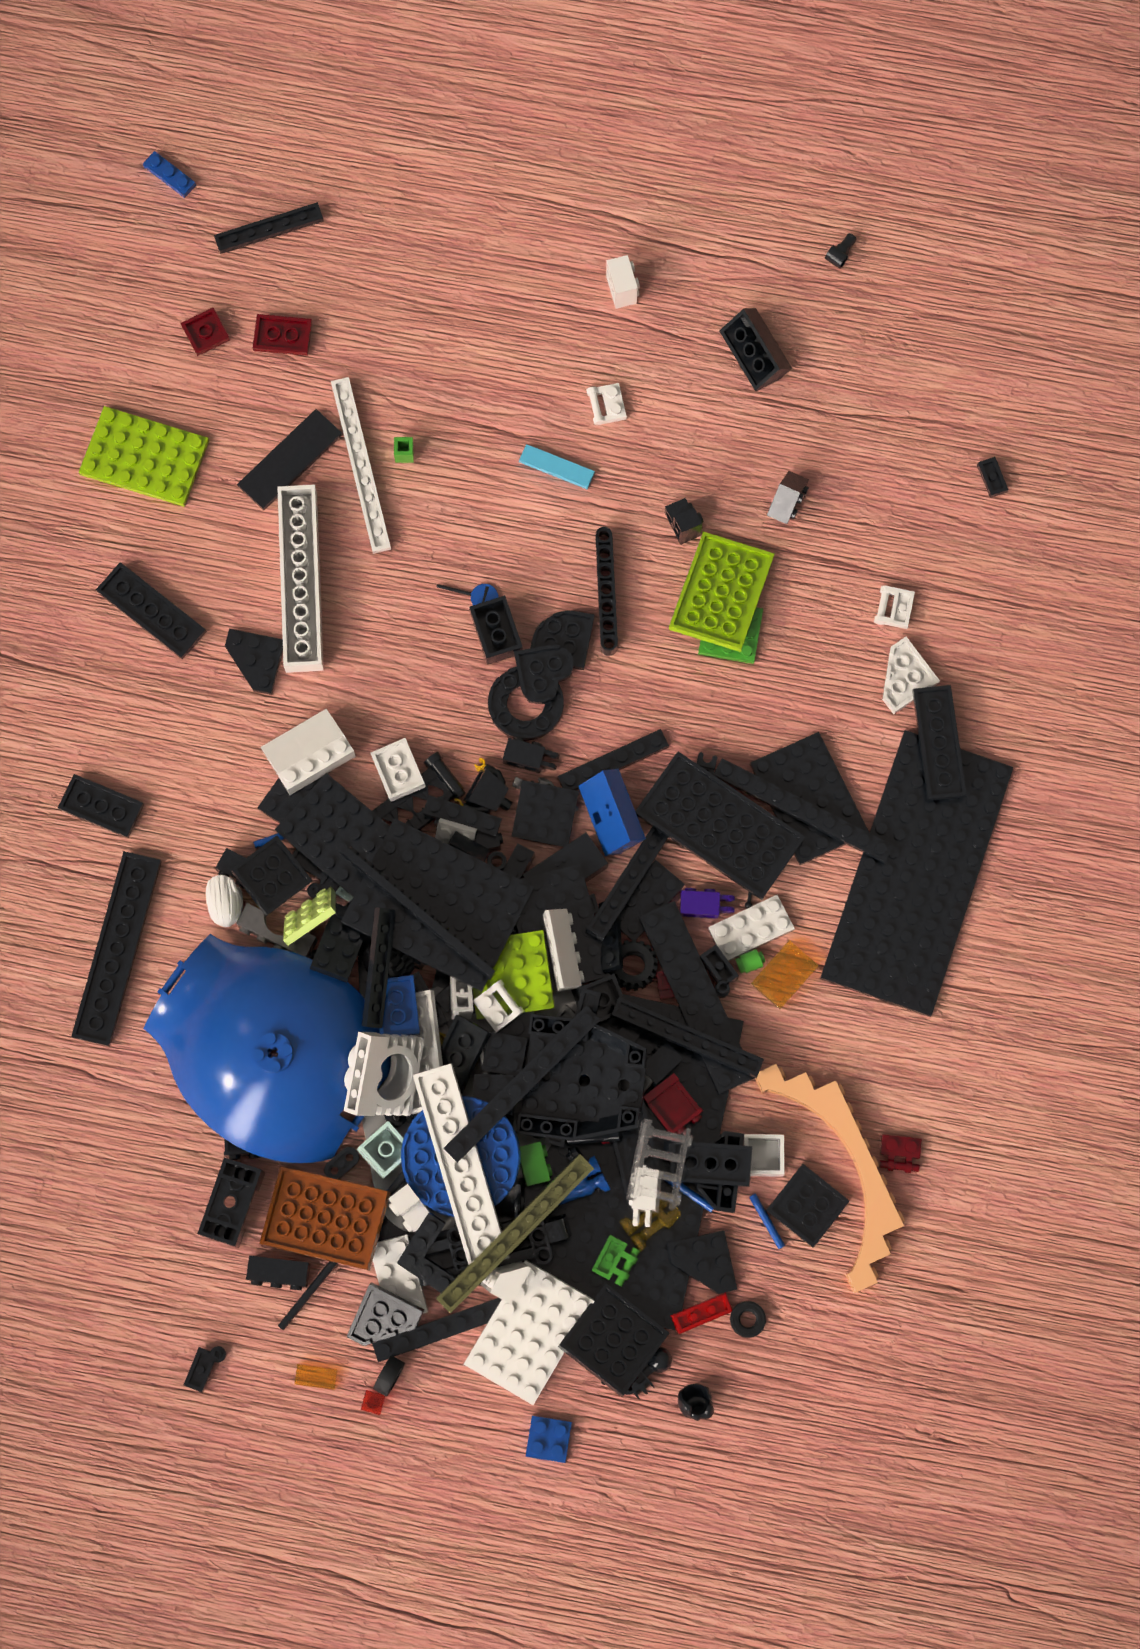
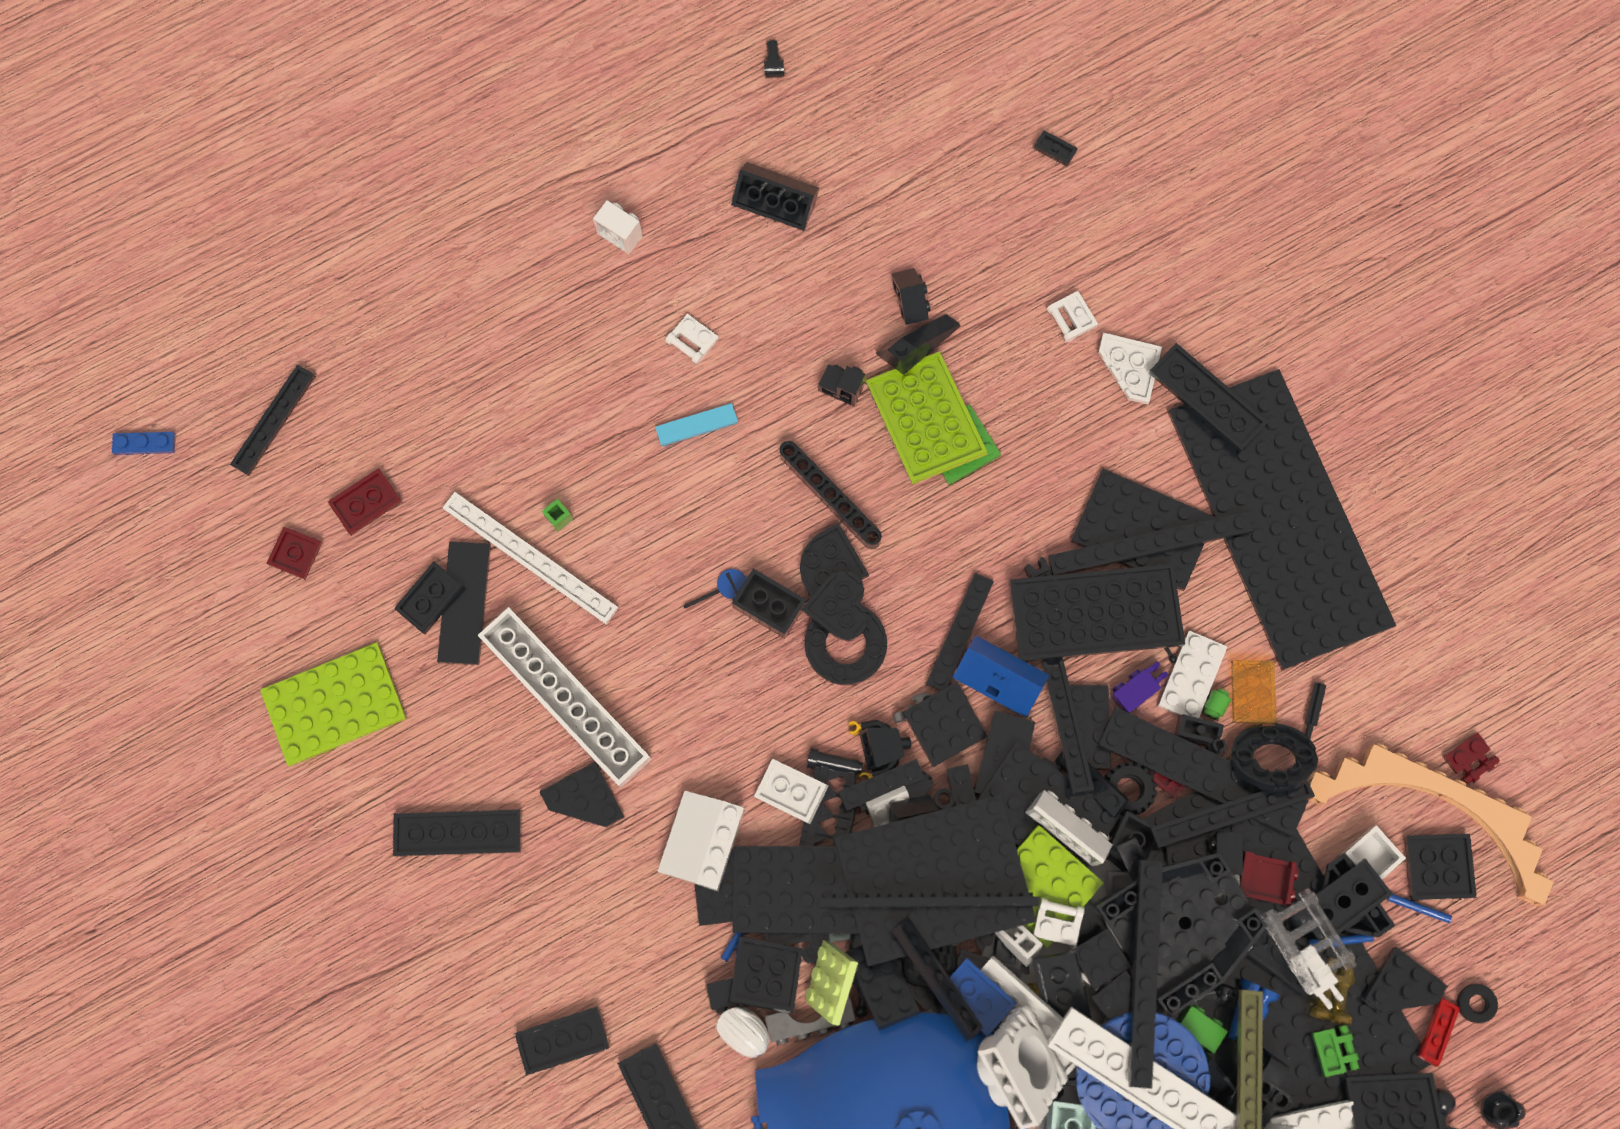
camera: 40 degrees left, 0 degrees up
(269, 436) = (429, 597): none -> black tile
(528, 755) = (887, 687): black hinge -> none
(755, 1005) = (1279, 734): none -> black plate
(756, 534) = (911, 347): none -> black wedge
(817, 1024) = (1314, 707): none -> black axle

